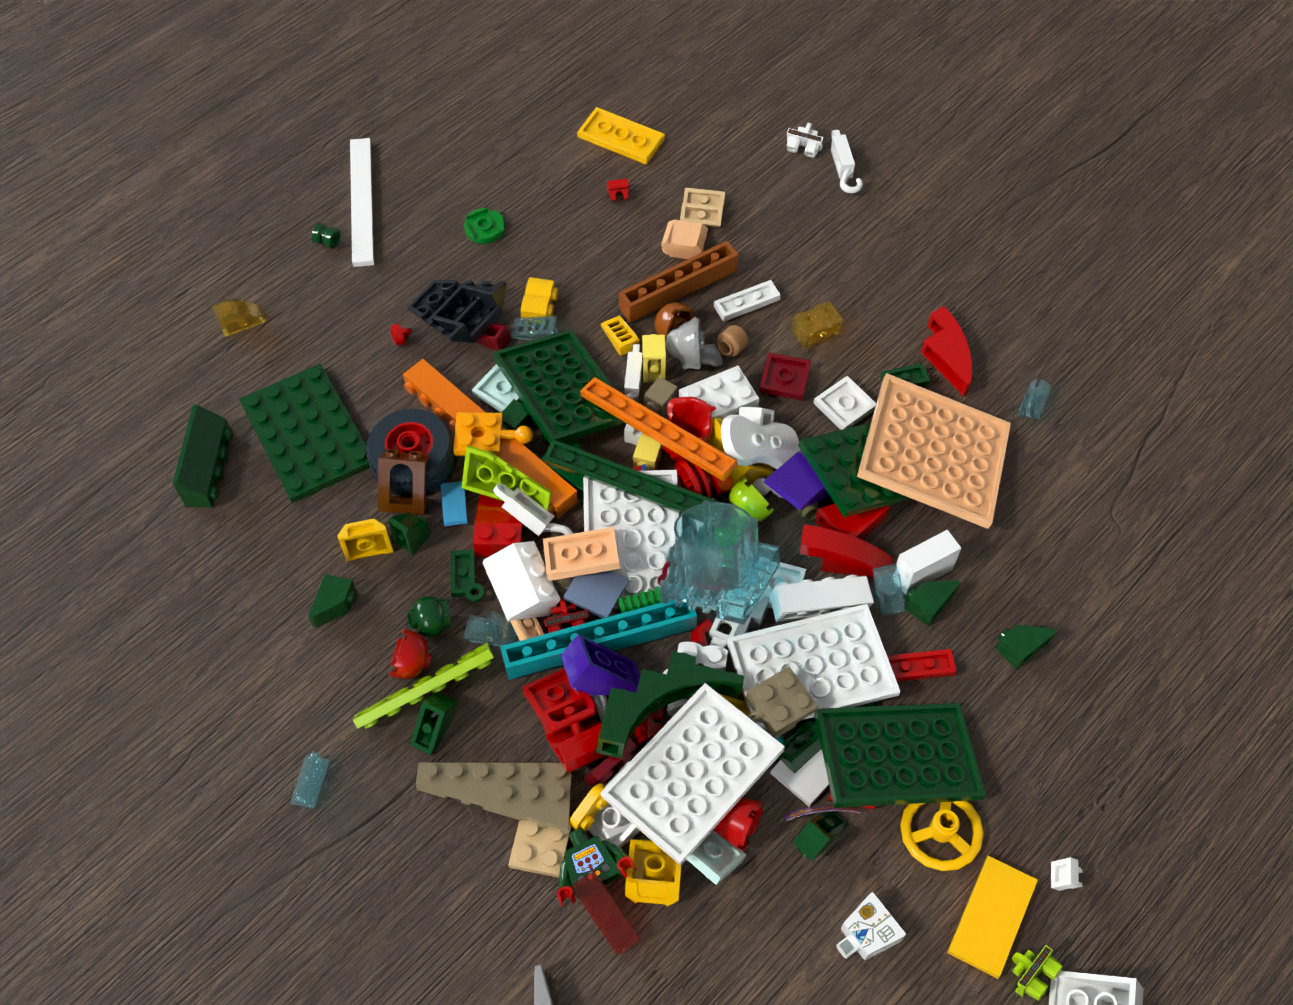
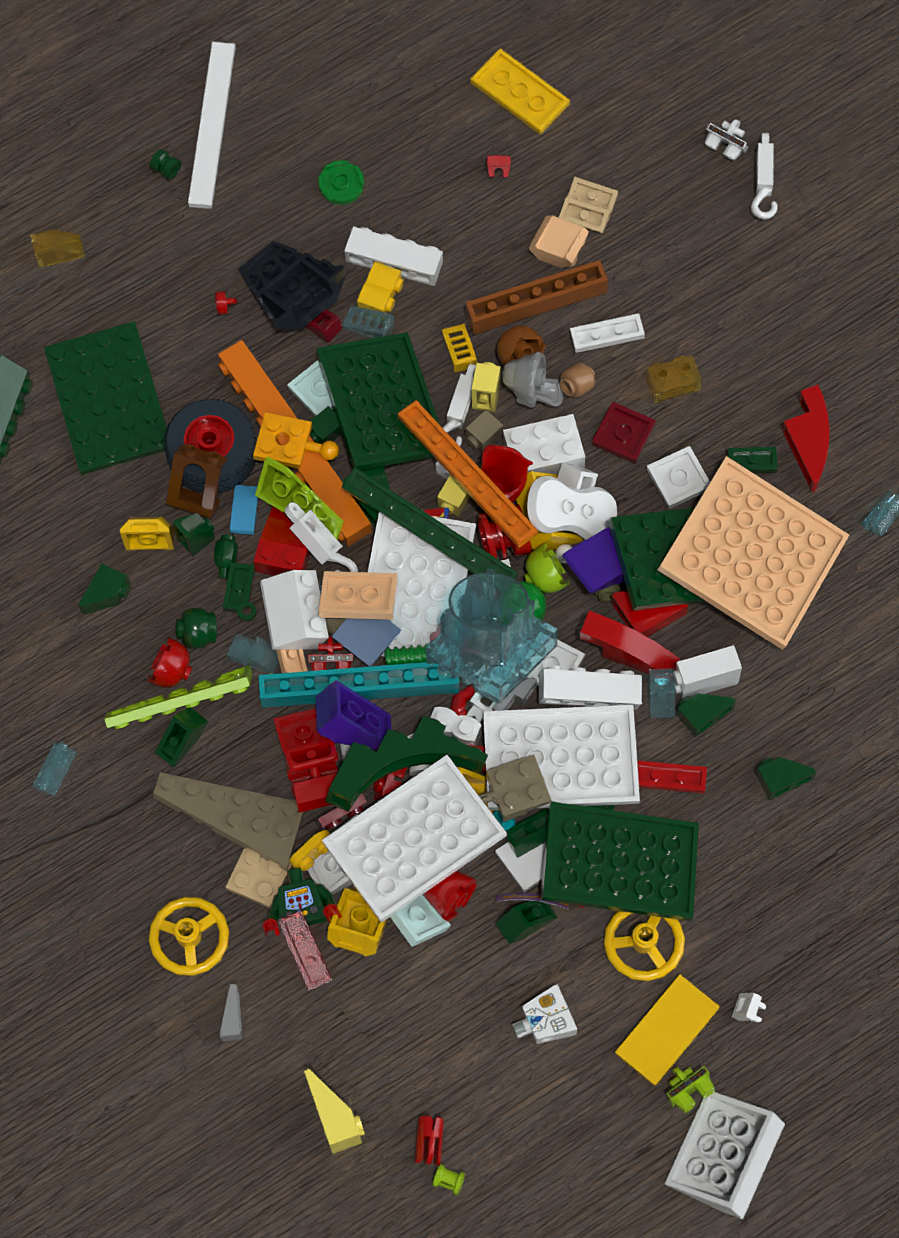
camera: 15 degrees right, 10 degrees up
(443, 544) = (224, 554): none -> dark green plant
(481, 931) = (188, 942): none -> yellow piece
(566, 272) = (413, 260): none -> white brick

